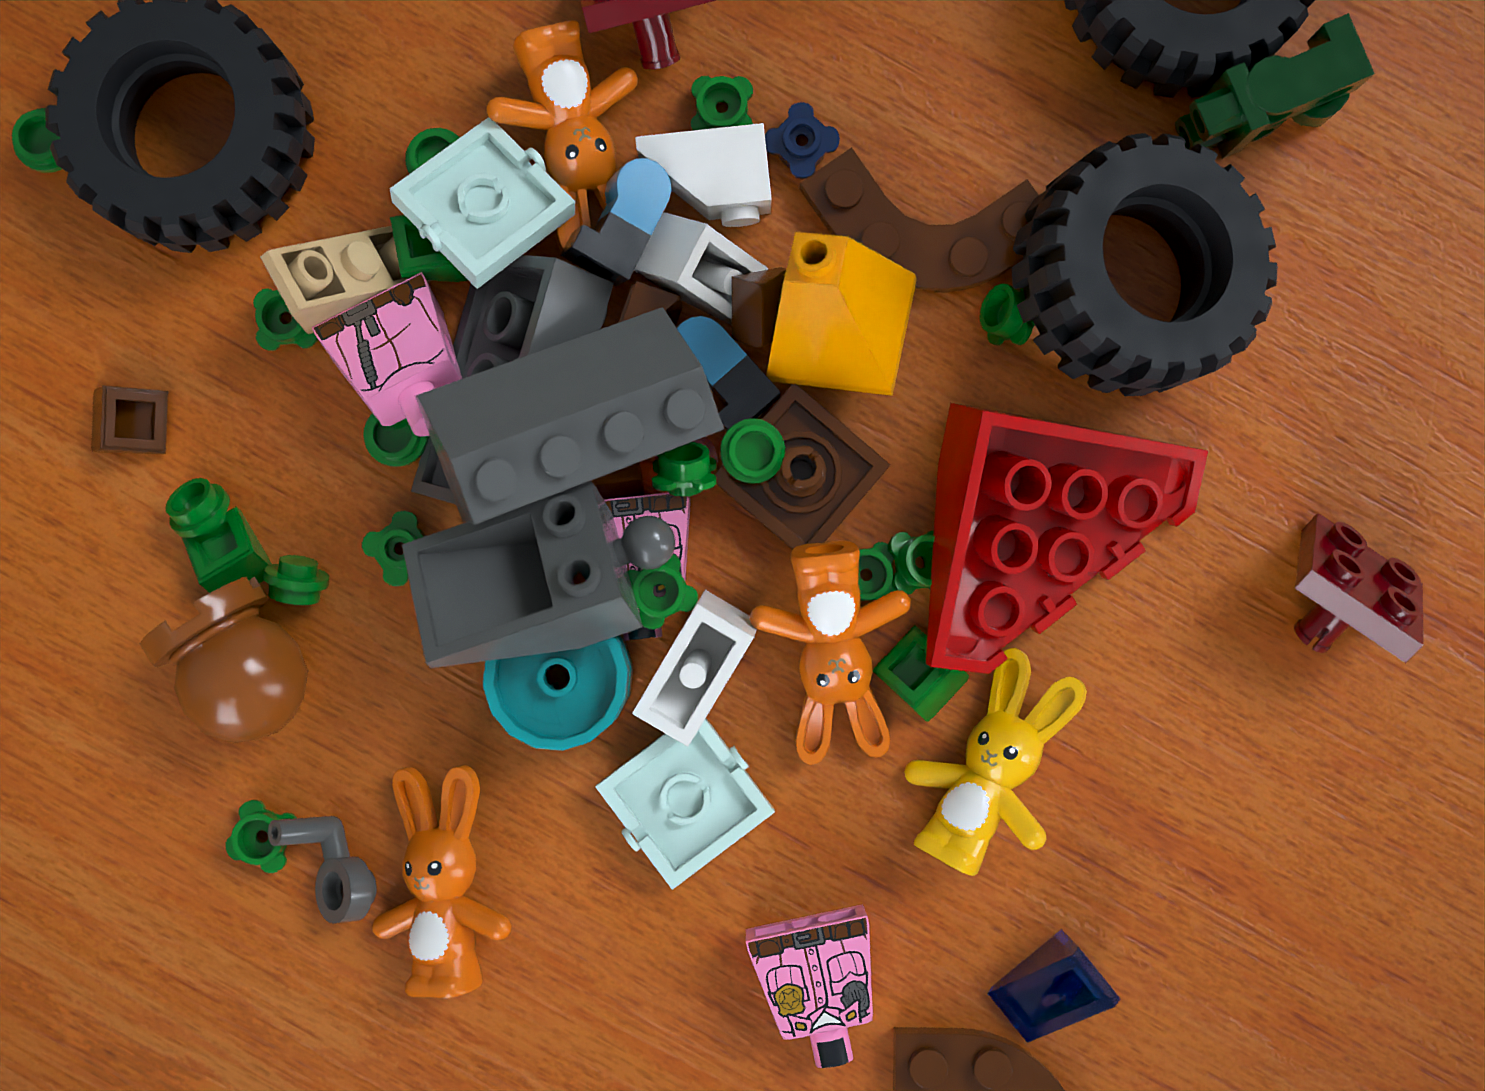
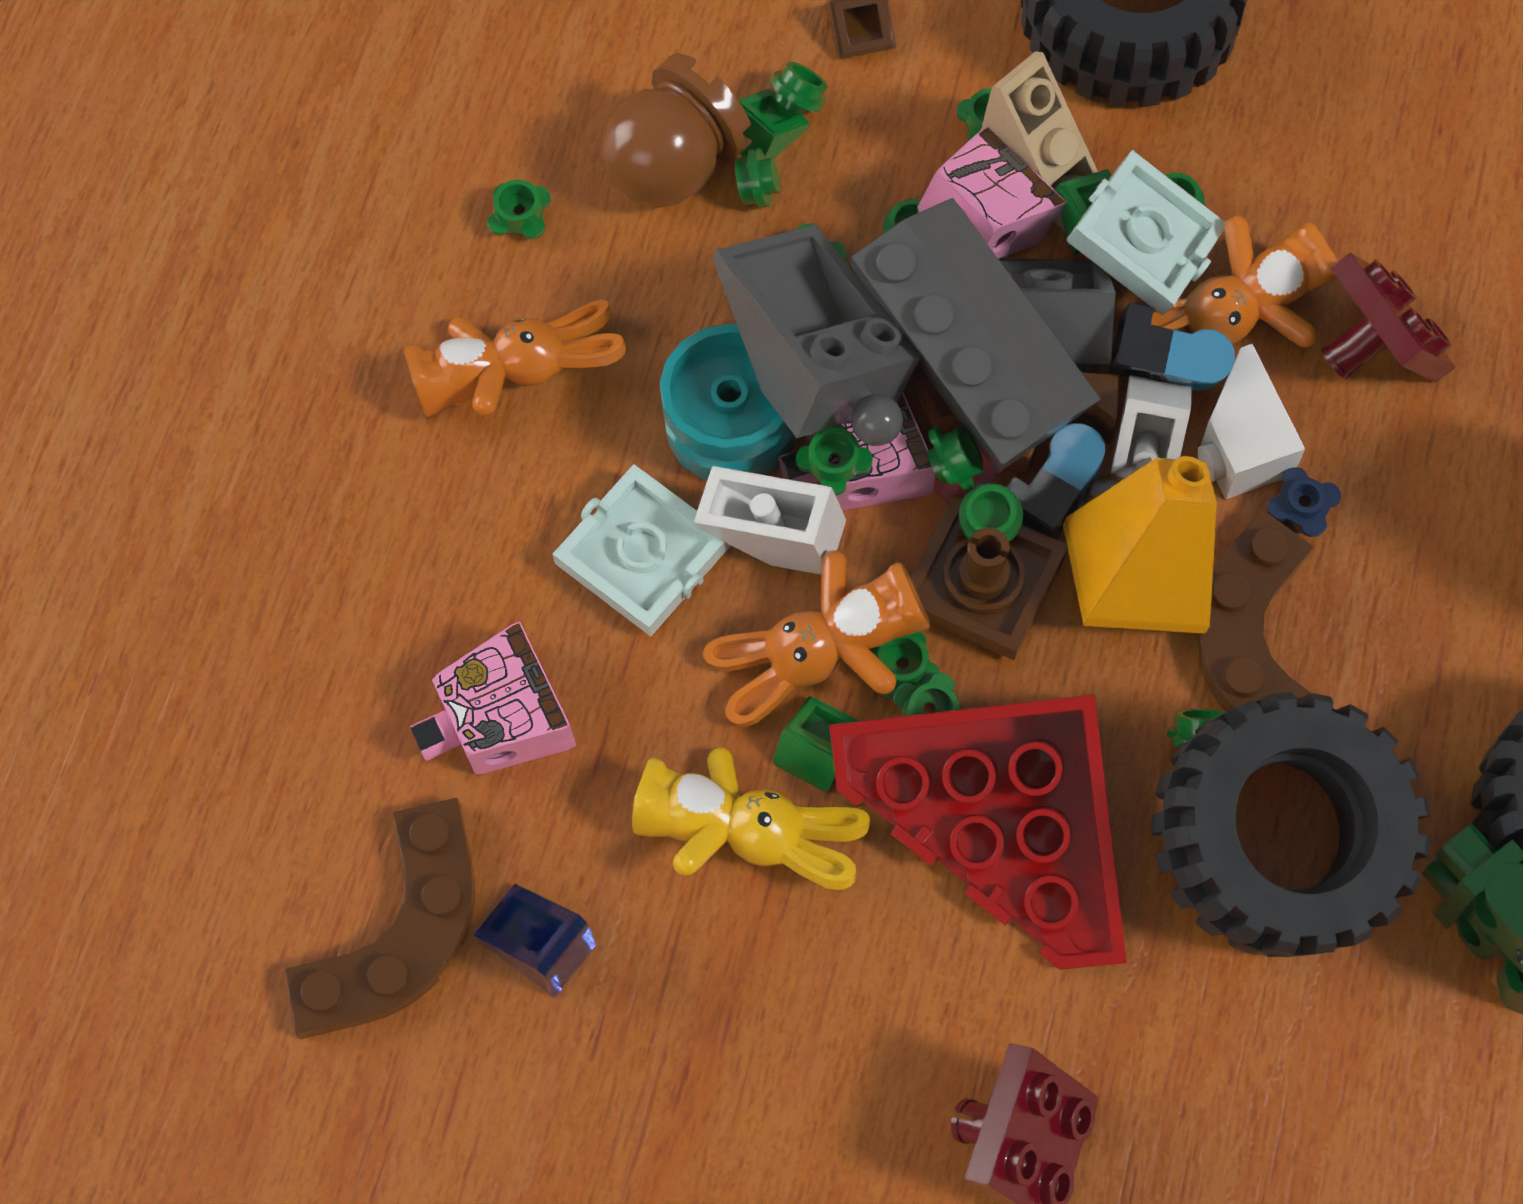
camera: 80 degrees right, 20 degrees down
(343, 882) = (492, 282): dark grey plate -> none
(719, 89) = (1323, 414): green plate -> none

